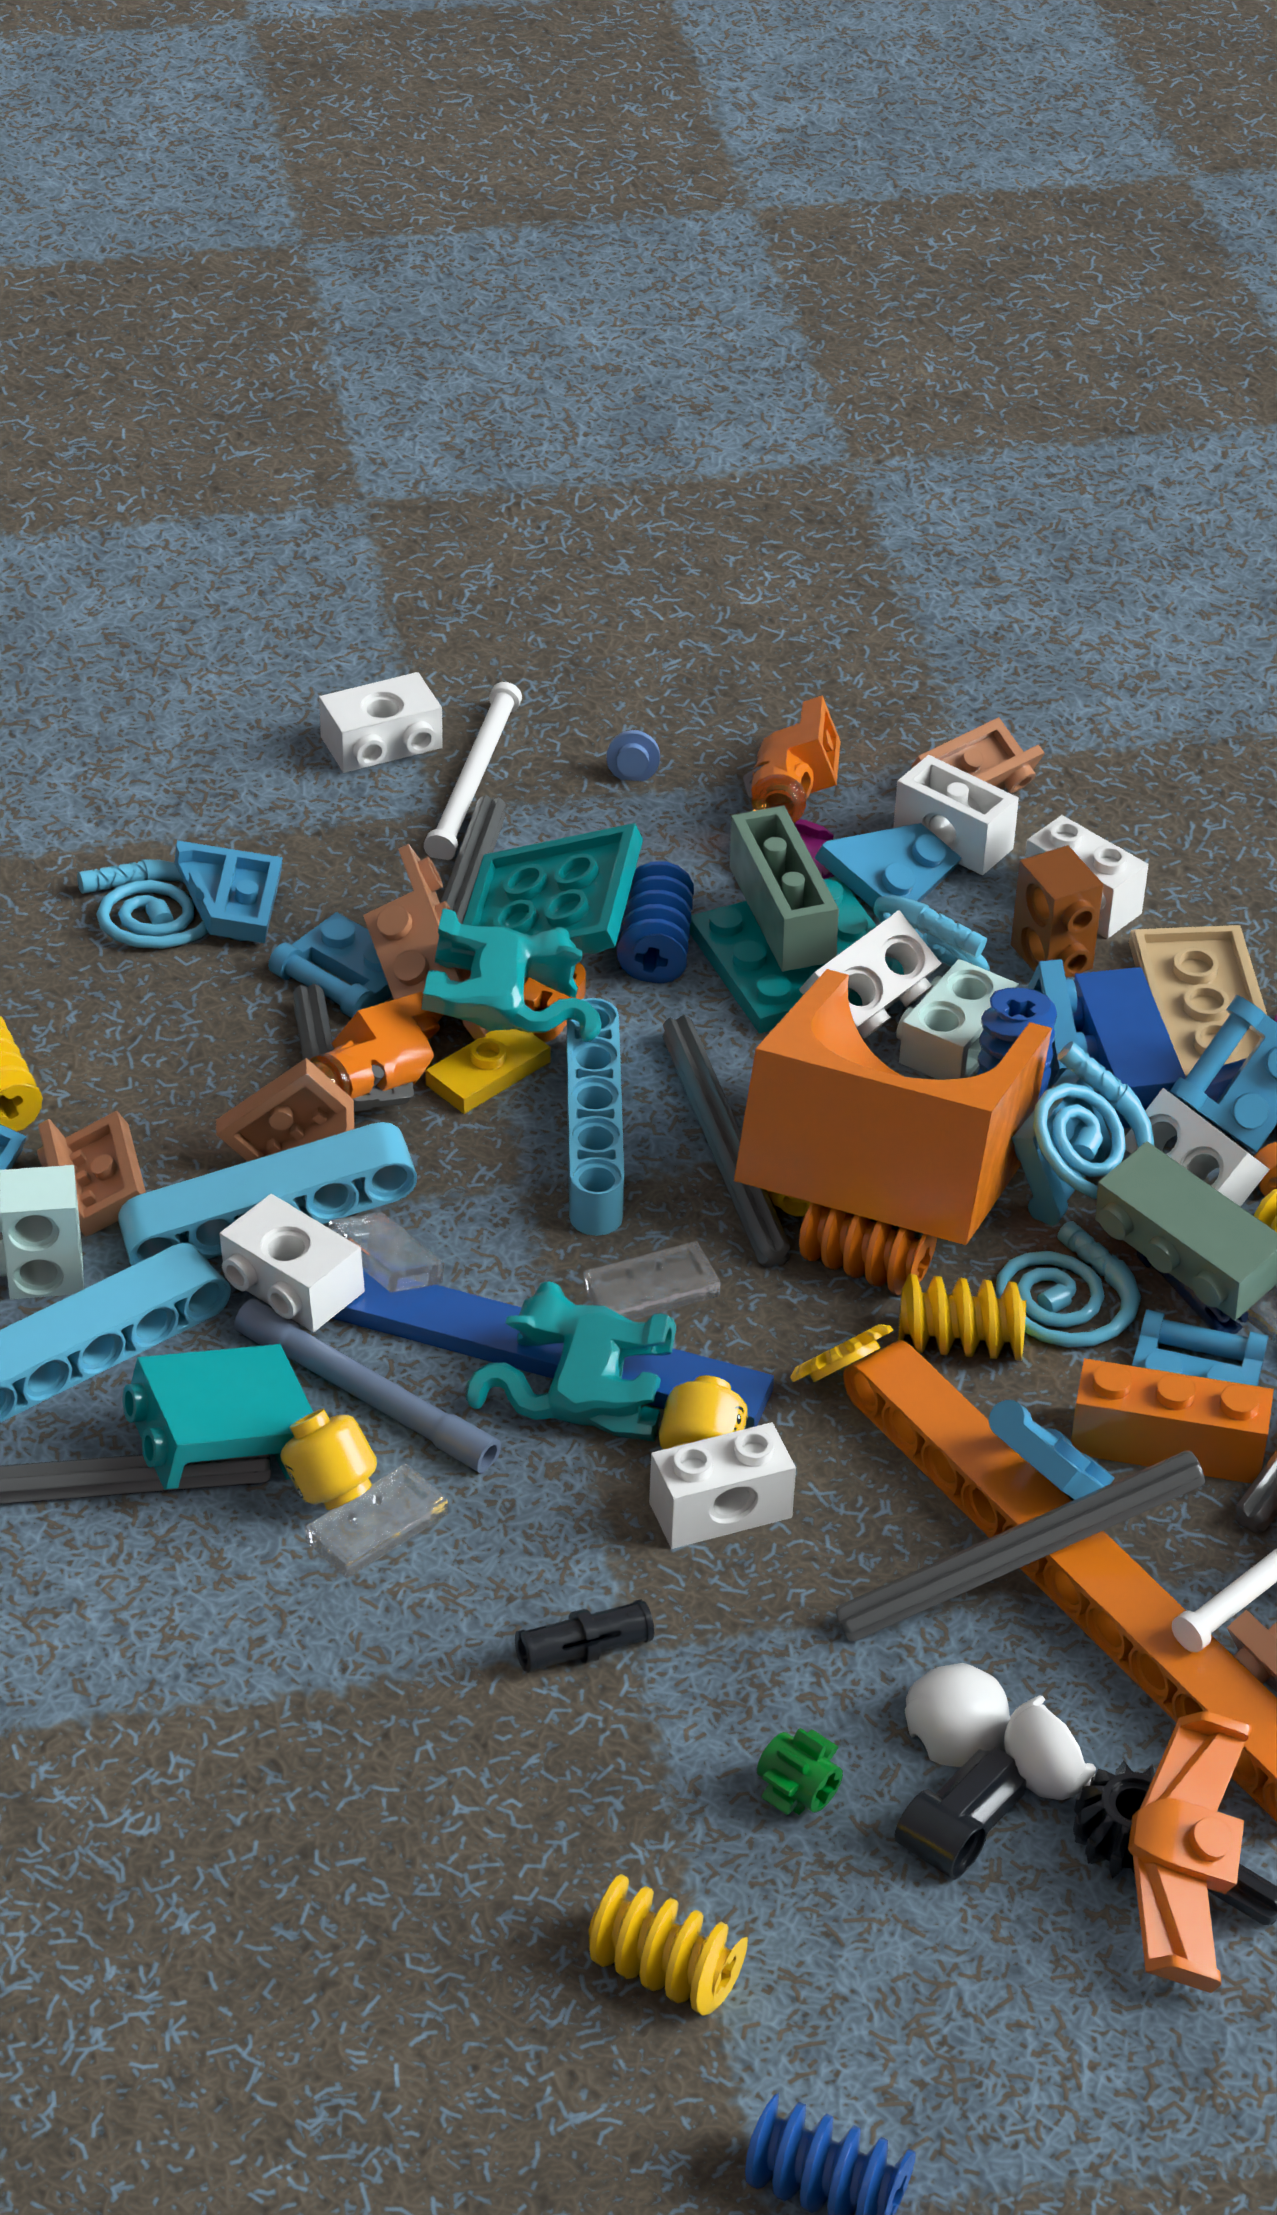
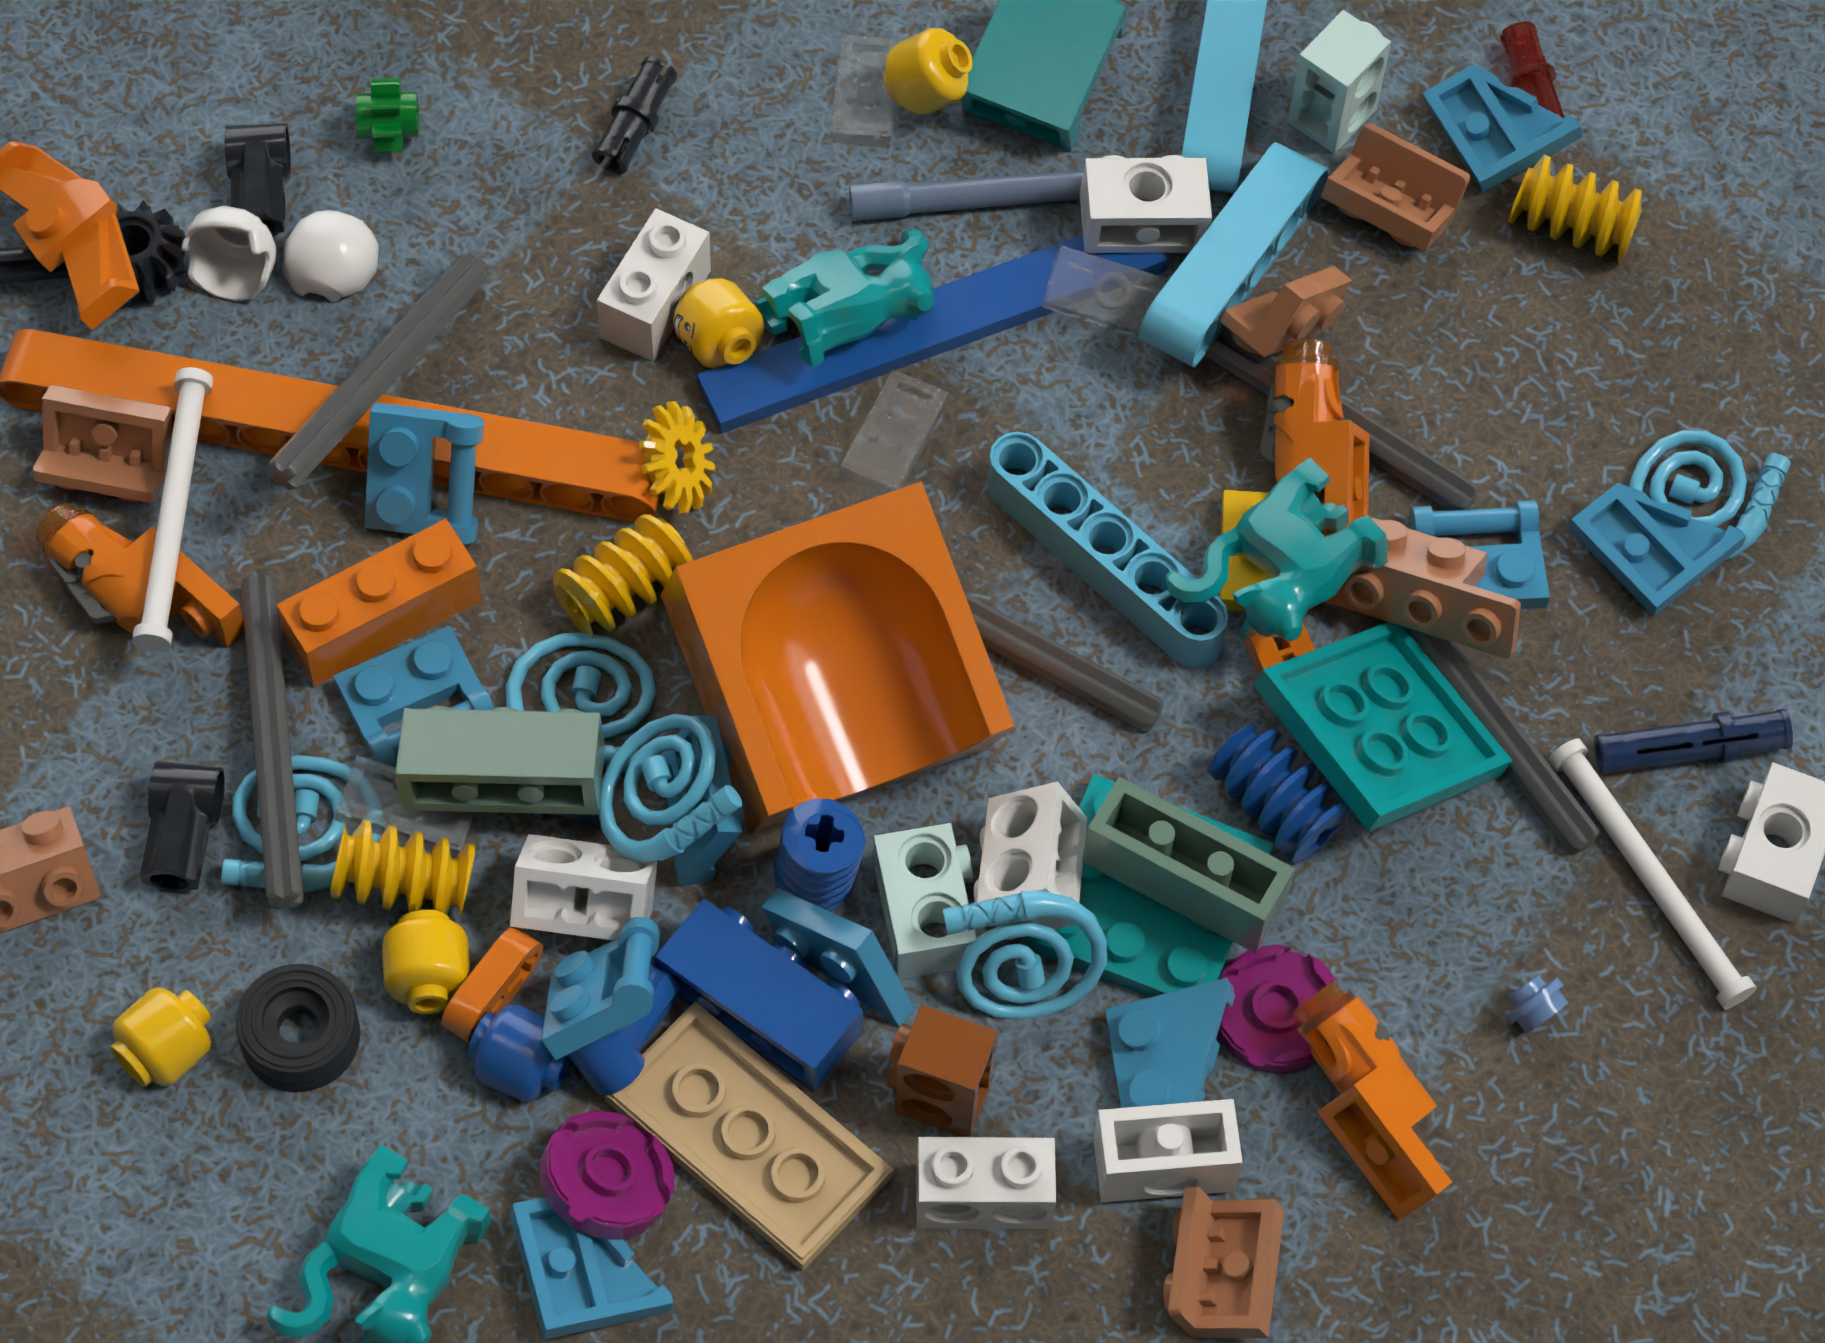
camera: 135 degrees right, 20 degrees up
(340, 790) = (1626, 749): none -> dark blue pin

